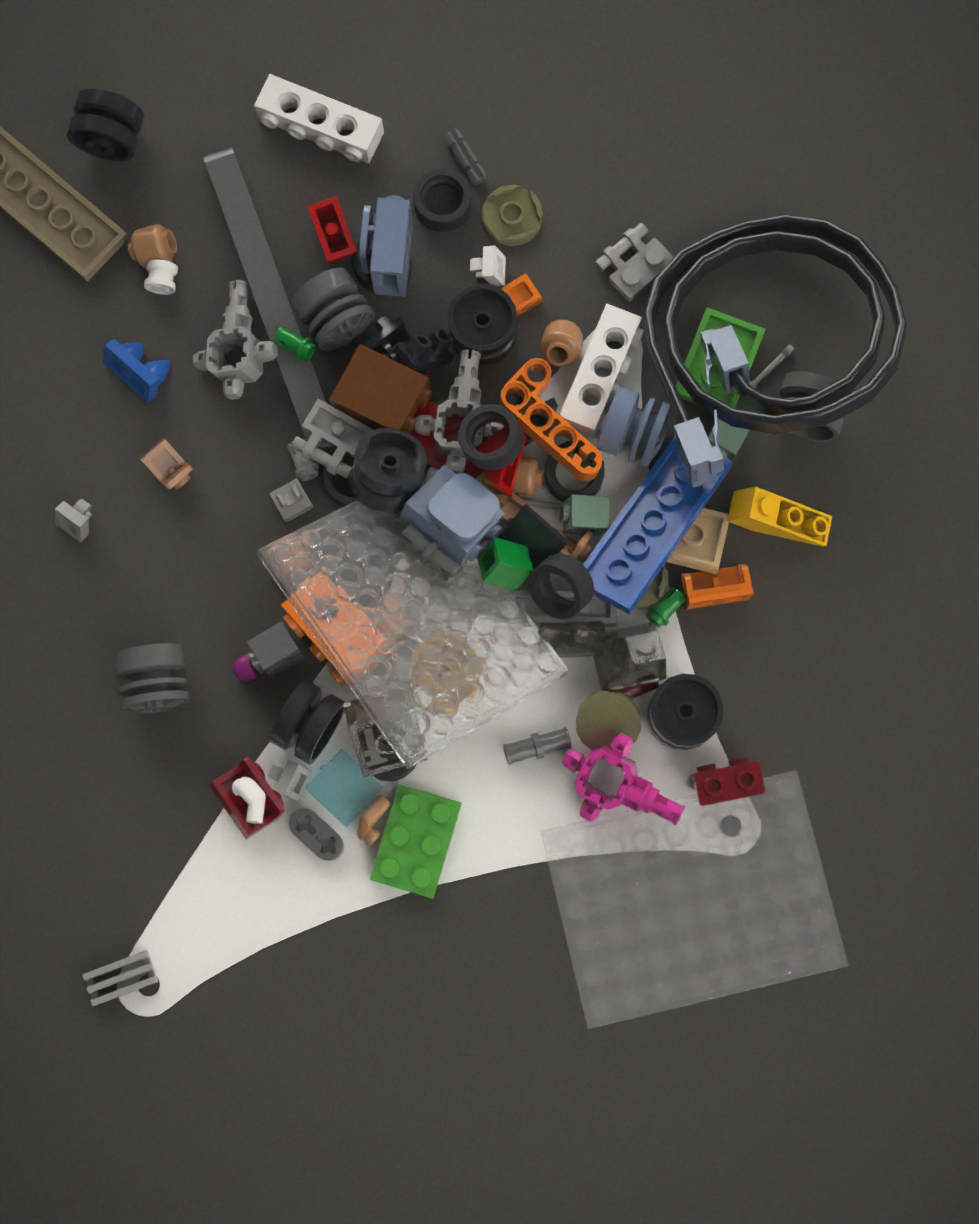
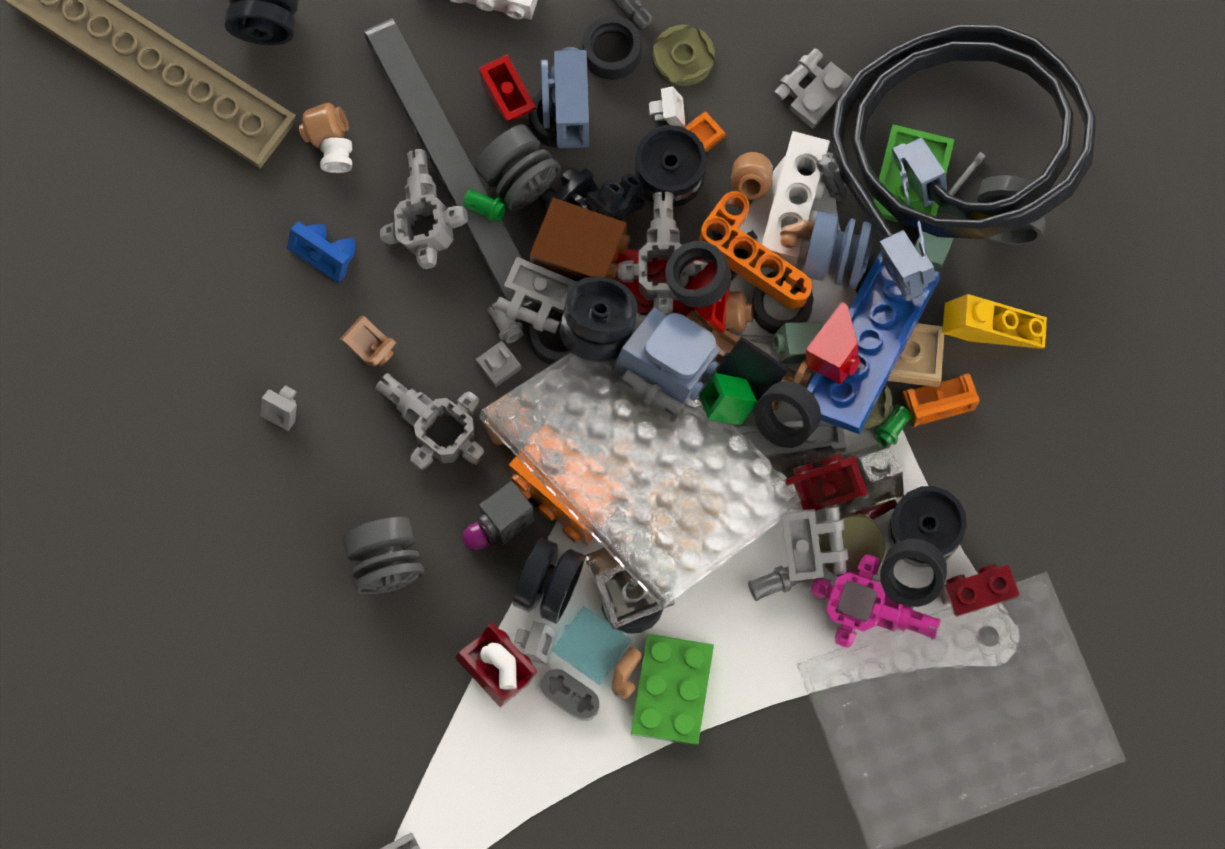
camera: 10 degrees left, 5 degrees down
(209, 541) = (421, 414): none -> light grey piece
(559, 717) = (803, 544): none -> light grey plate
(592, 660) = (829, 484): none -> dark red bracket
(593, 404) = (793, 232): none -> medium nougat arm
(616, 525) = (835, 347): none -> slope
(639, 354) = (832, 177): none -> dark grey axle
(652, 777) = (913, 549): none -> black tyre

